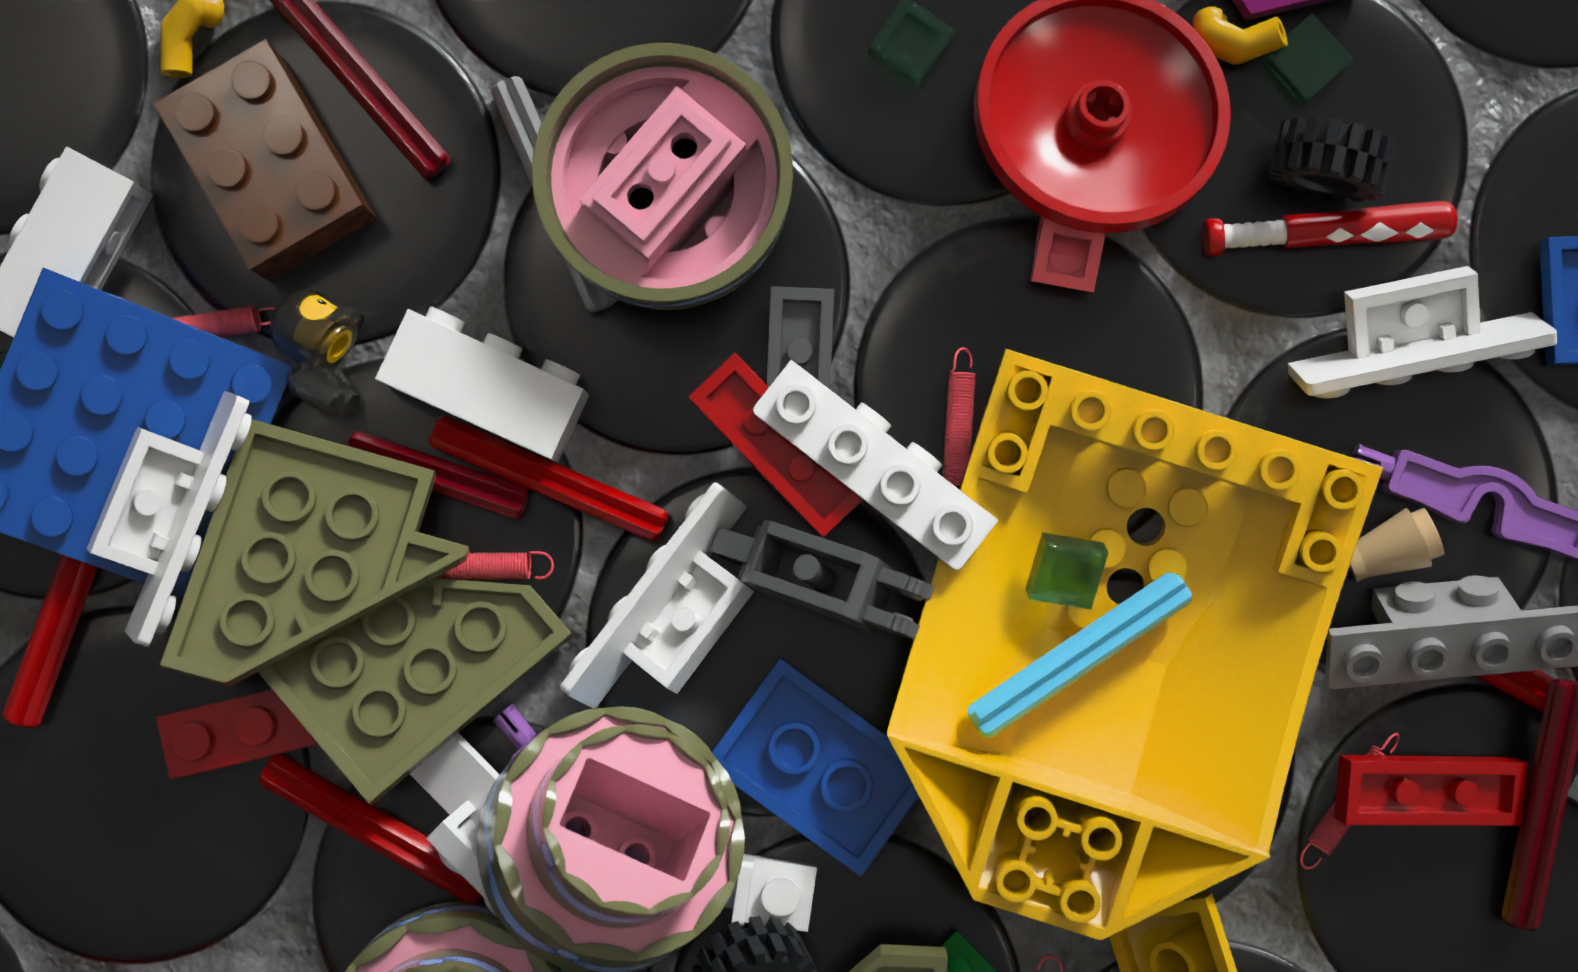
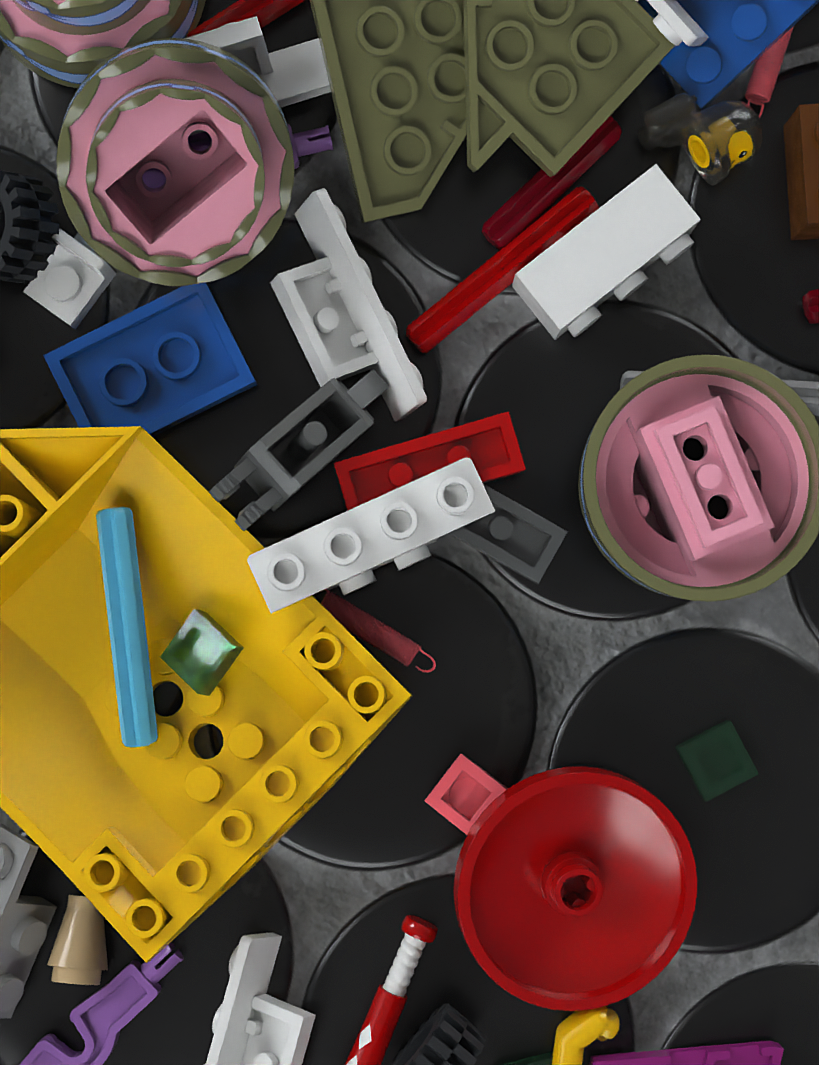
camera: 125 degrees right, 0 degrees up
(496, 566) = (451, 191): coral piece -> none

